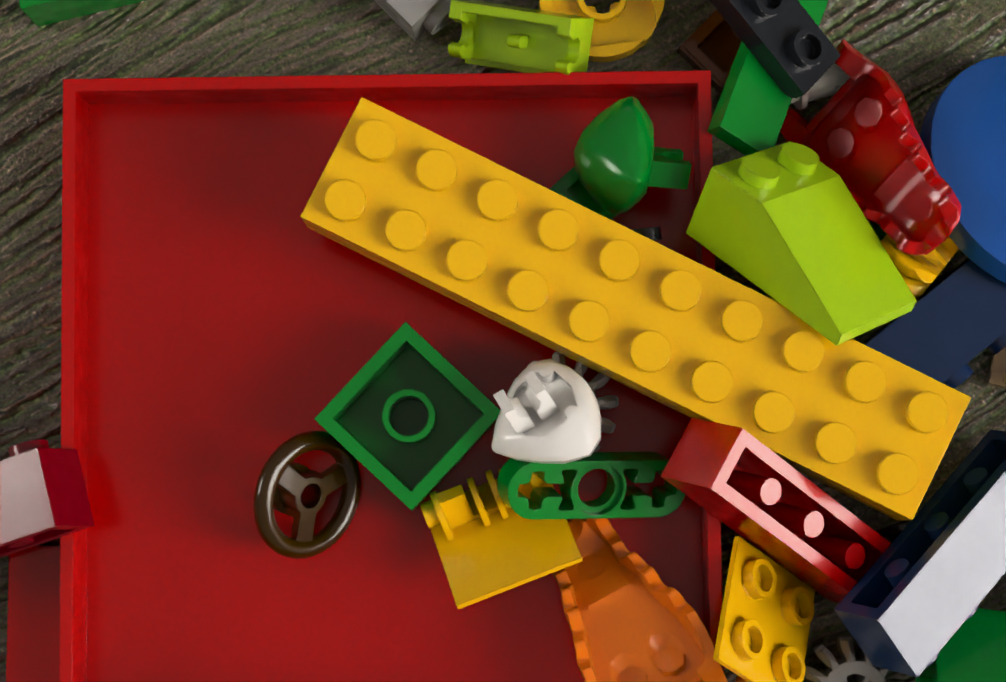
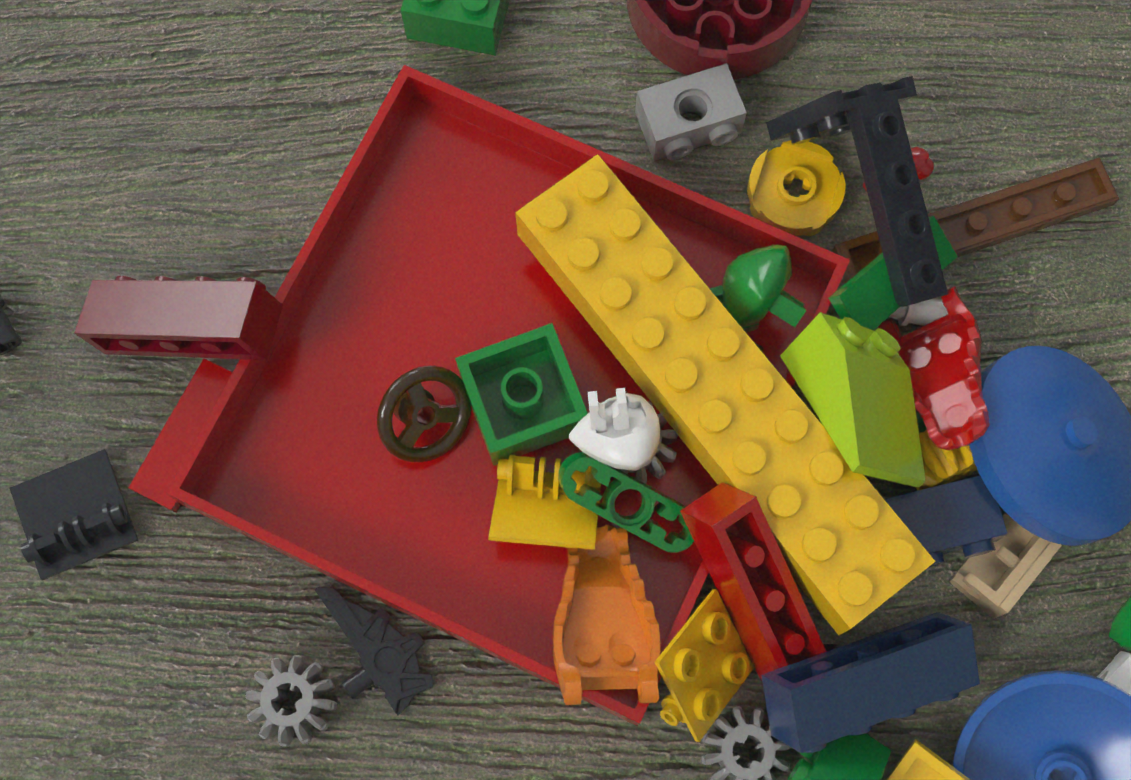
camera: 25 degrees right, 10 degrees down
(520, 38) = (728, 180): lime hinge -> none

